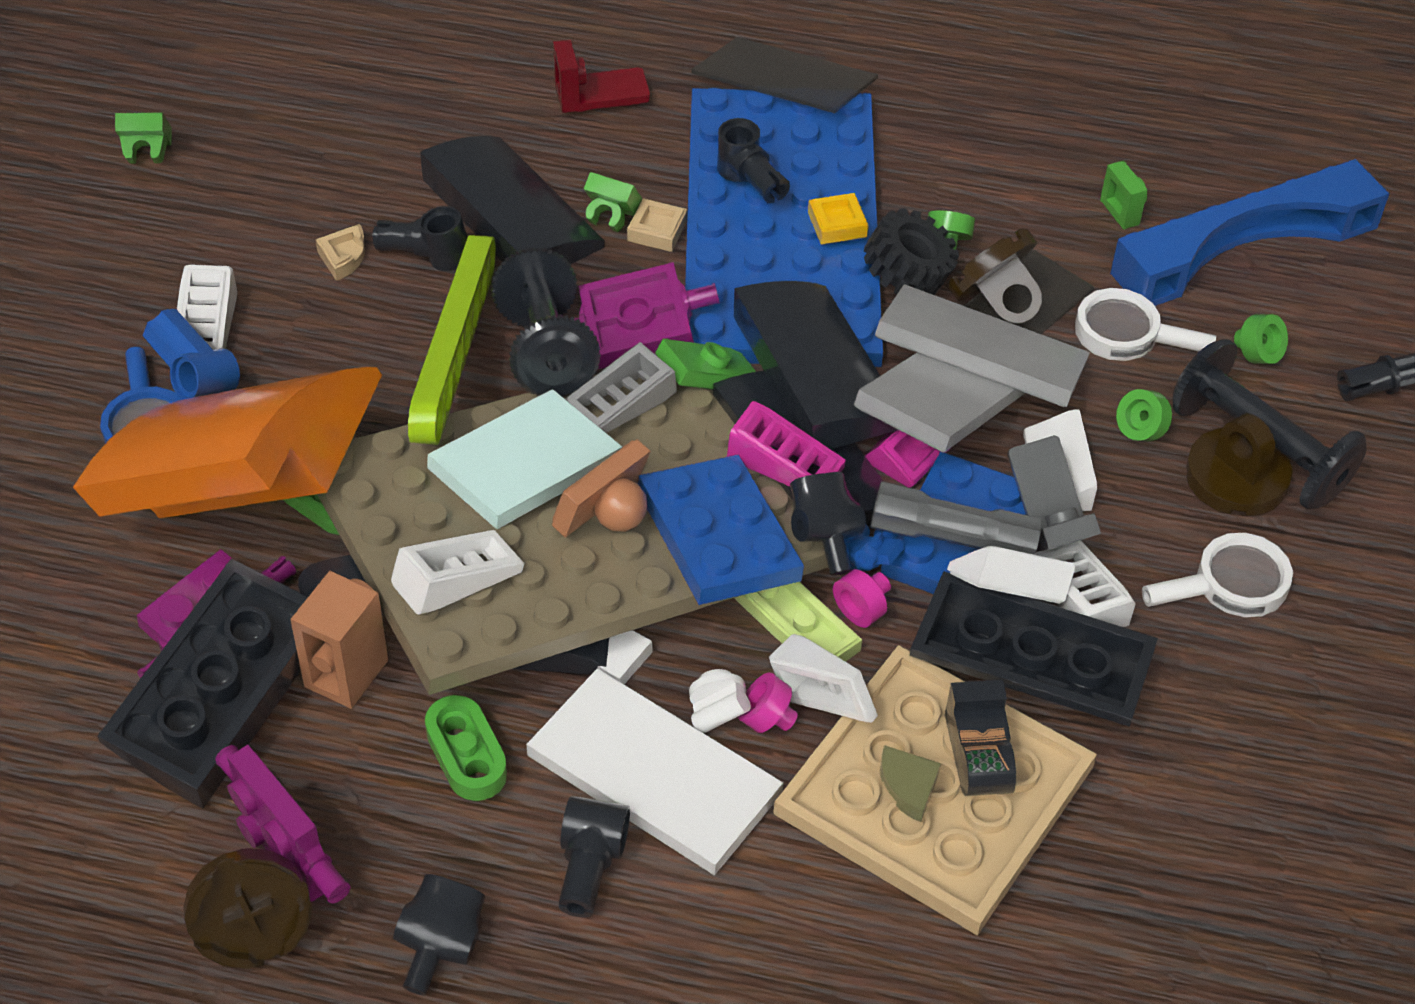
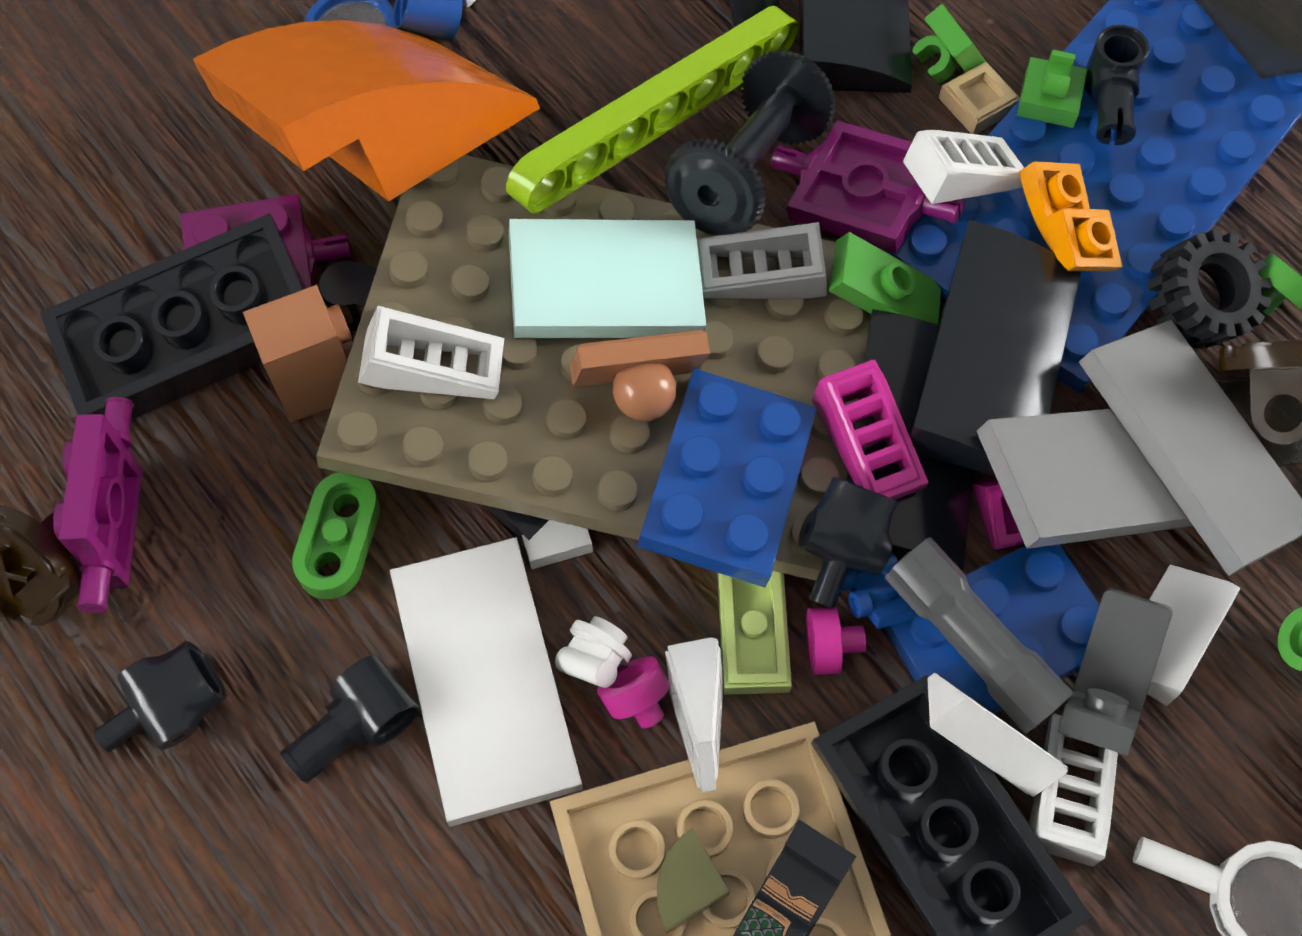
camera: 40 degrees right, 15 degrees up
(696, 262) = (961, 165): none -> white slope
(709, 188) = (1052, 89): none -> bright green tile
(807, 261) = (1073, 231): none -> light orange slope
(837, 218) = (1161, 202): yellow tile -> none

